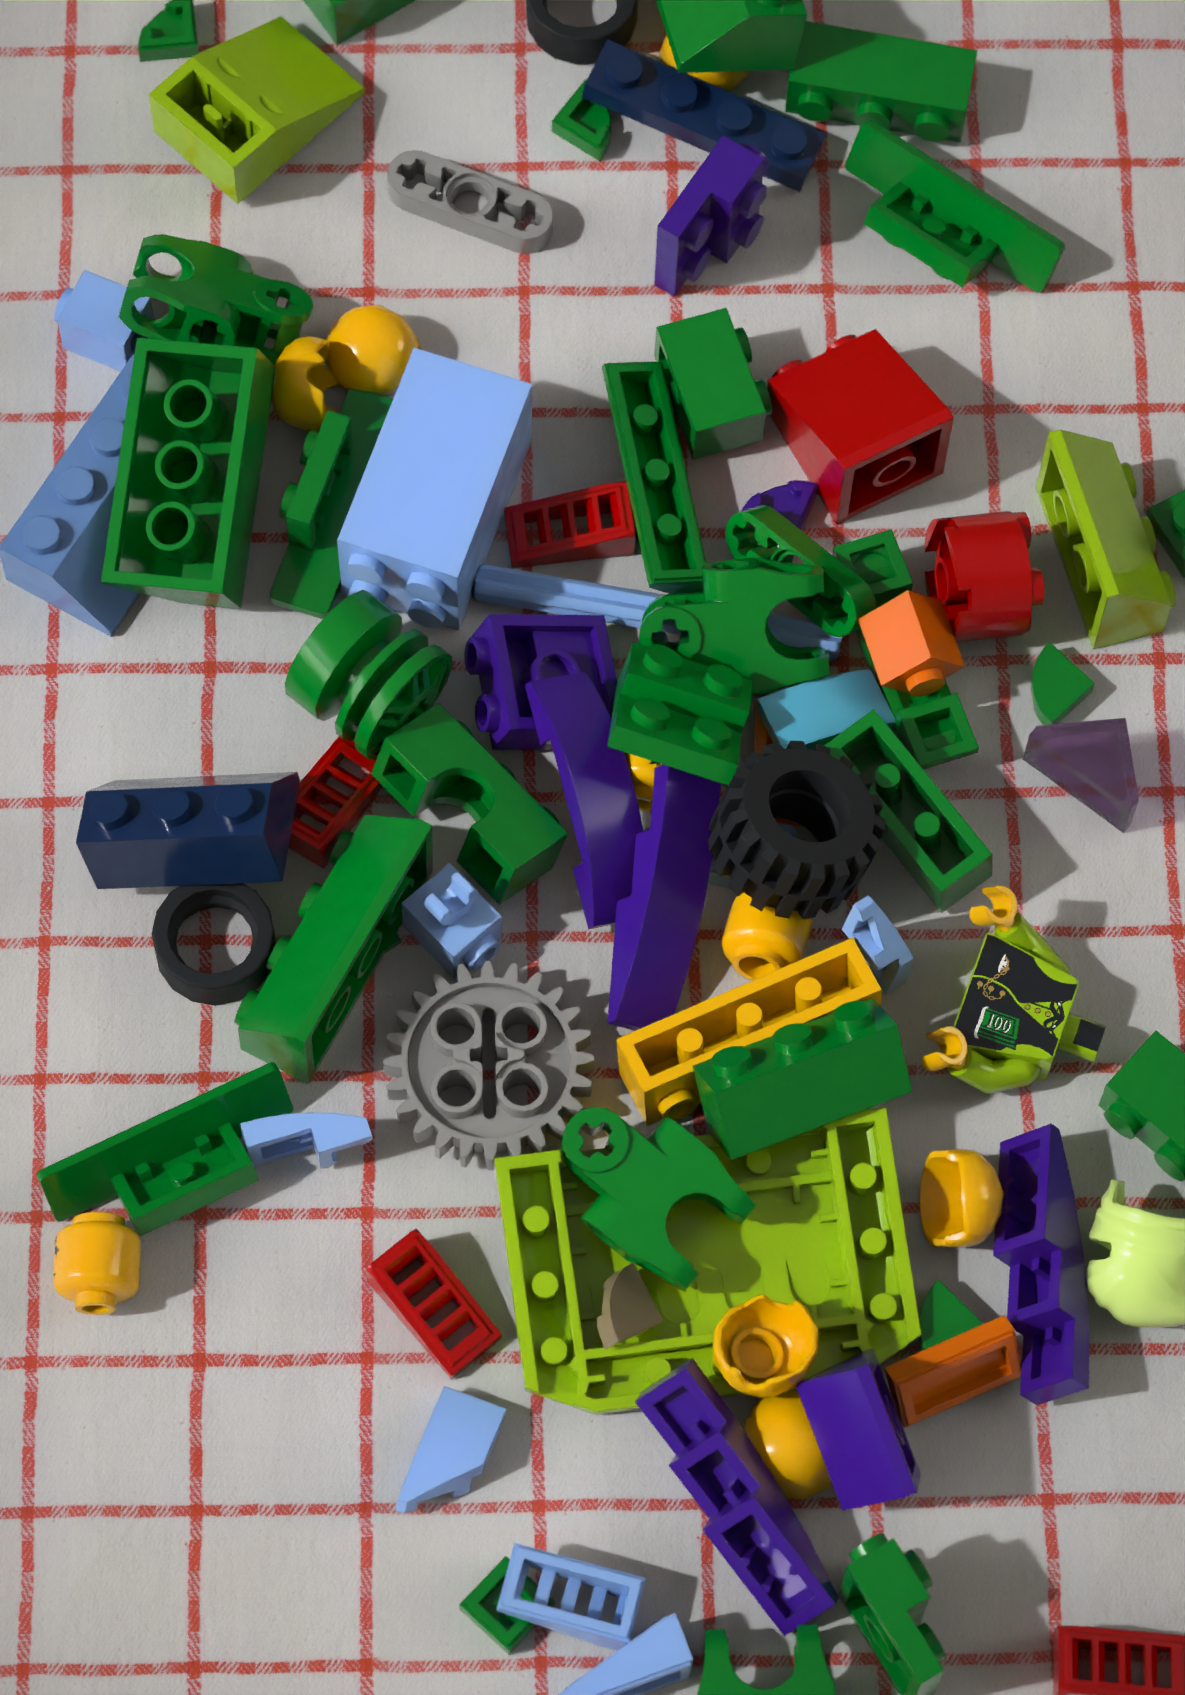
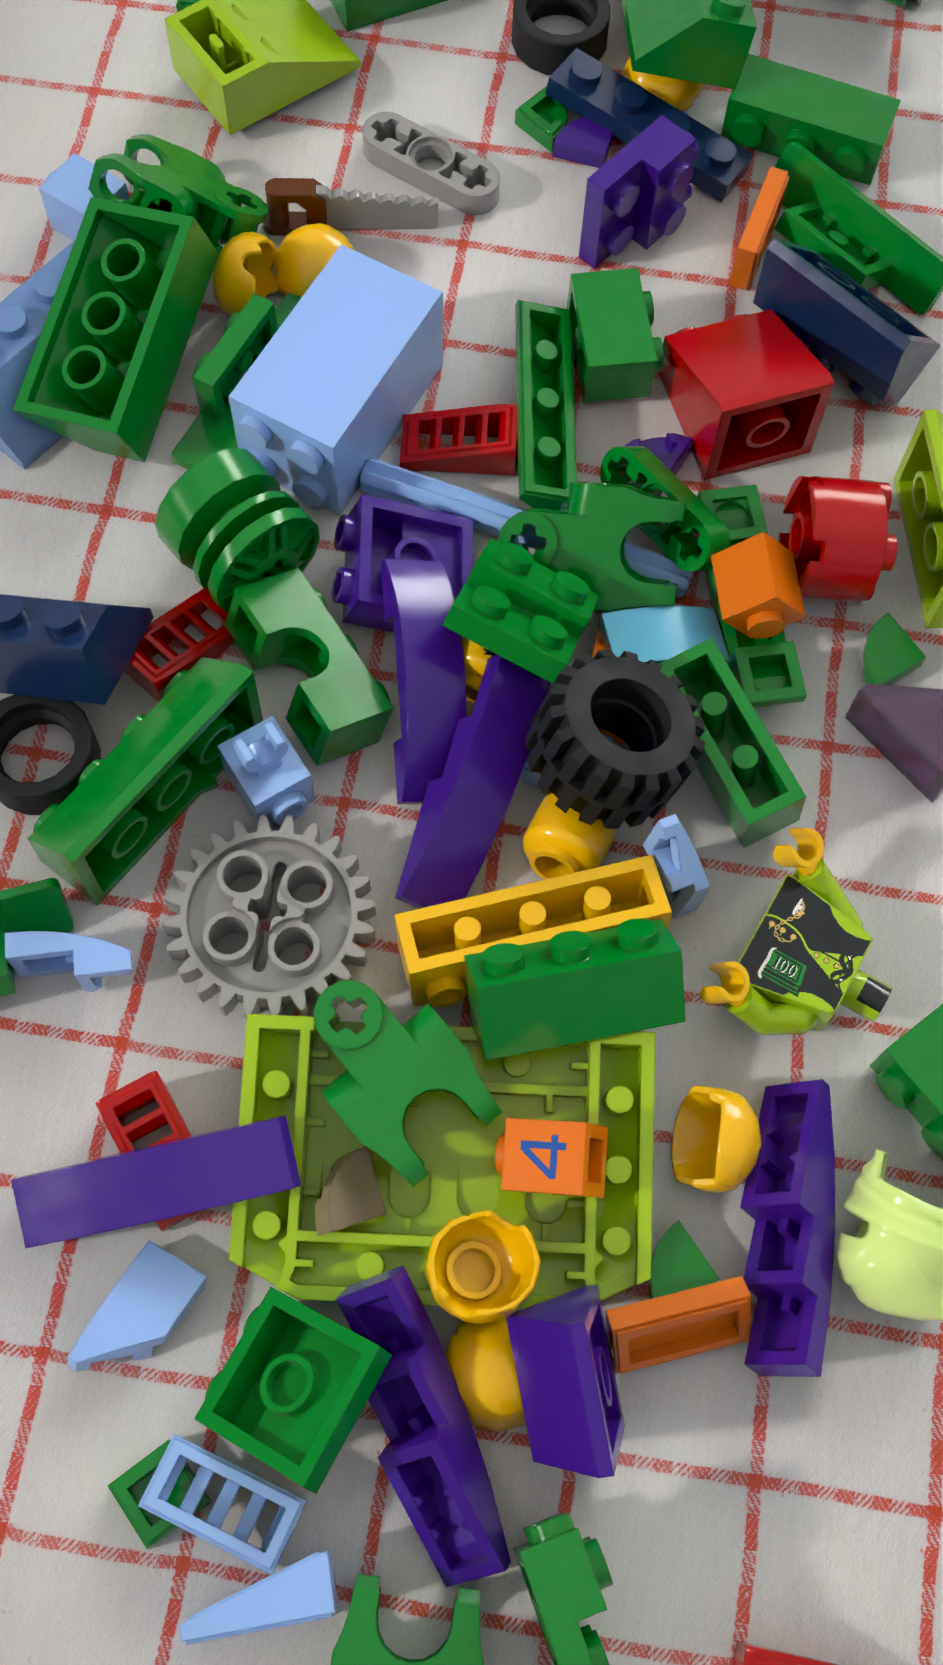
camera: 10 degrees right, 0 degrees up
(355, 282) = (343, 209): none -> piece
(443, 1328) = (156, 1182): none -> dark purple slope
(612, 1483) = (293, 1388): none -> green plate
(634, 147) = (583, 143): none -> dark purple tile
(810, 1238) = (552, 1157): none -> orange brick
(847, 225) = (759, 228): none -> orange tile
(954, 328) = (843, 322): none -> dark blue slope

